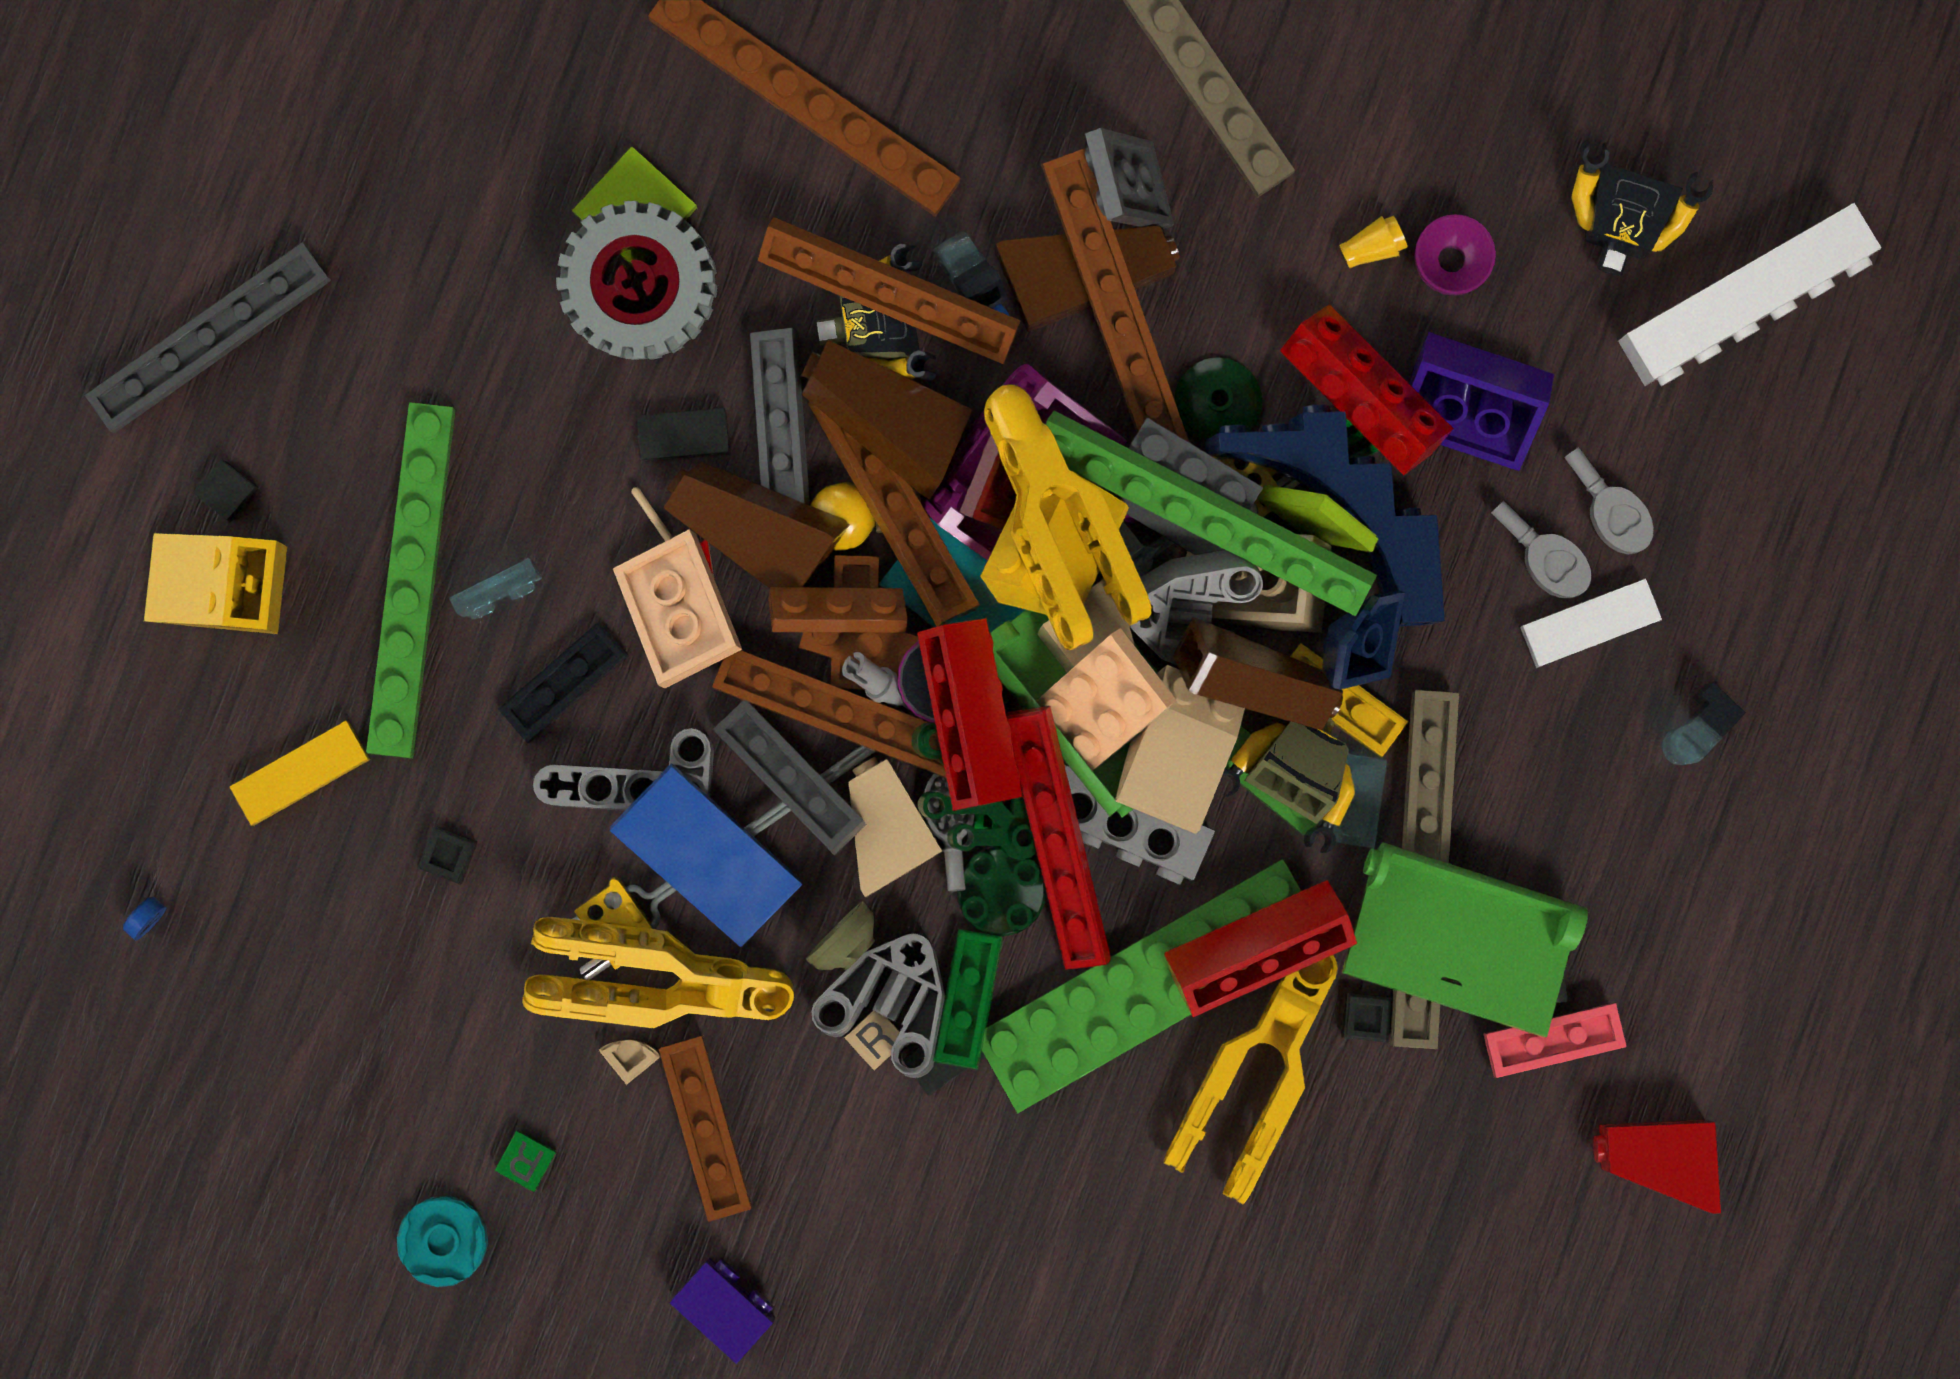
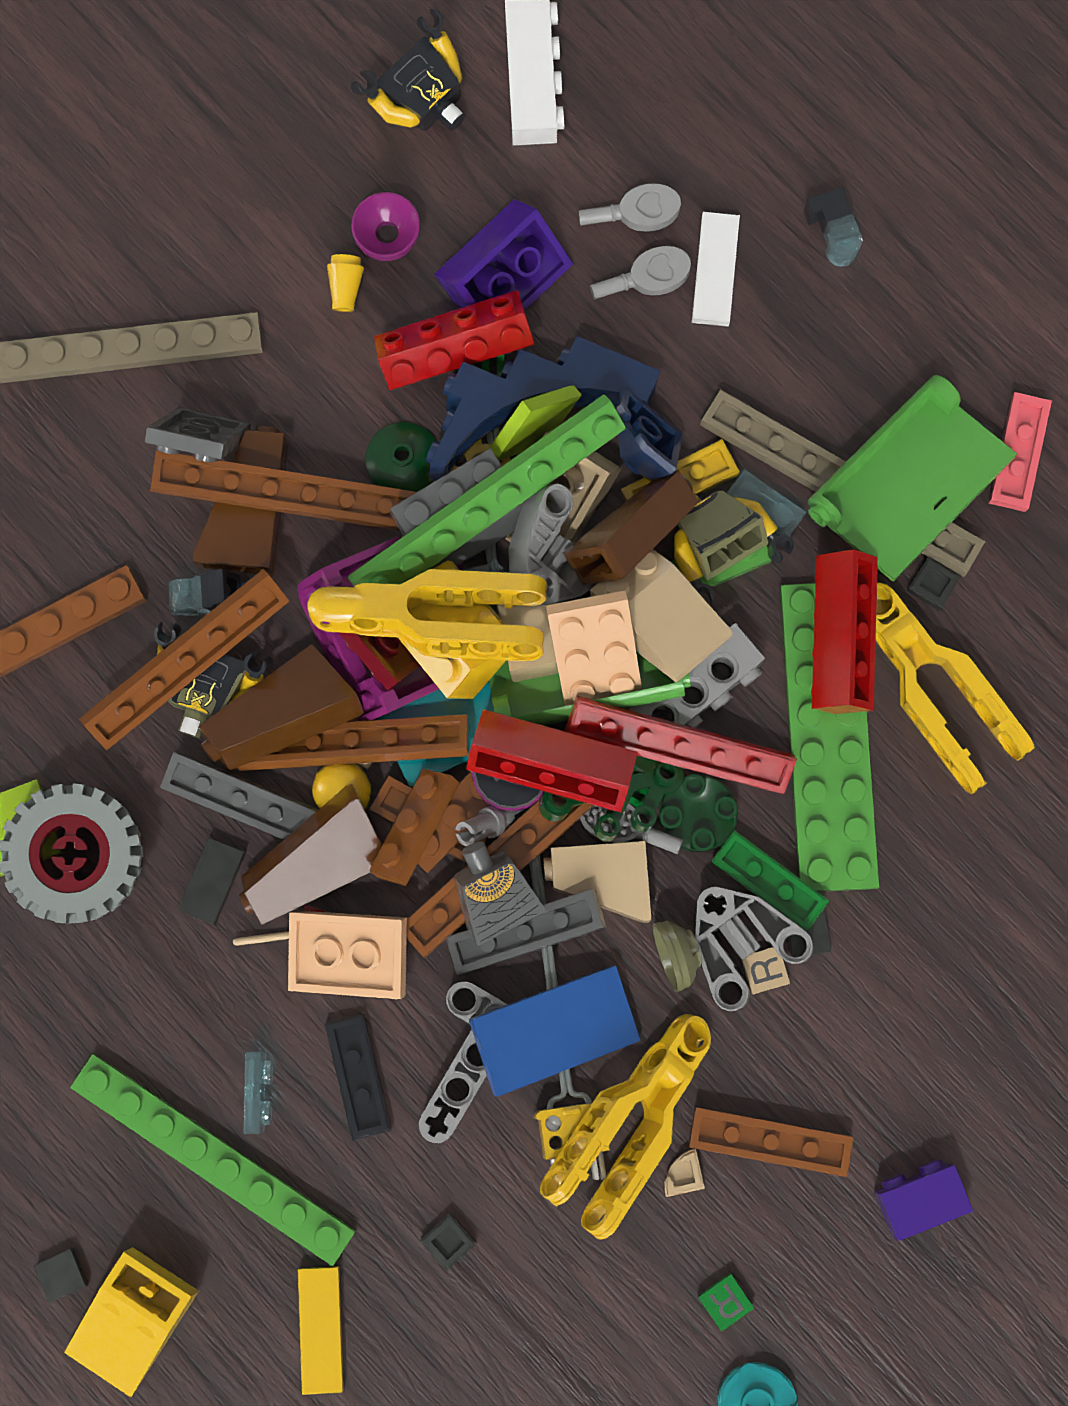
camera: 55 degrees left, 5 degrees down
(808, 725) = (493, 894): none -> dark grey torso

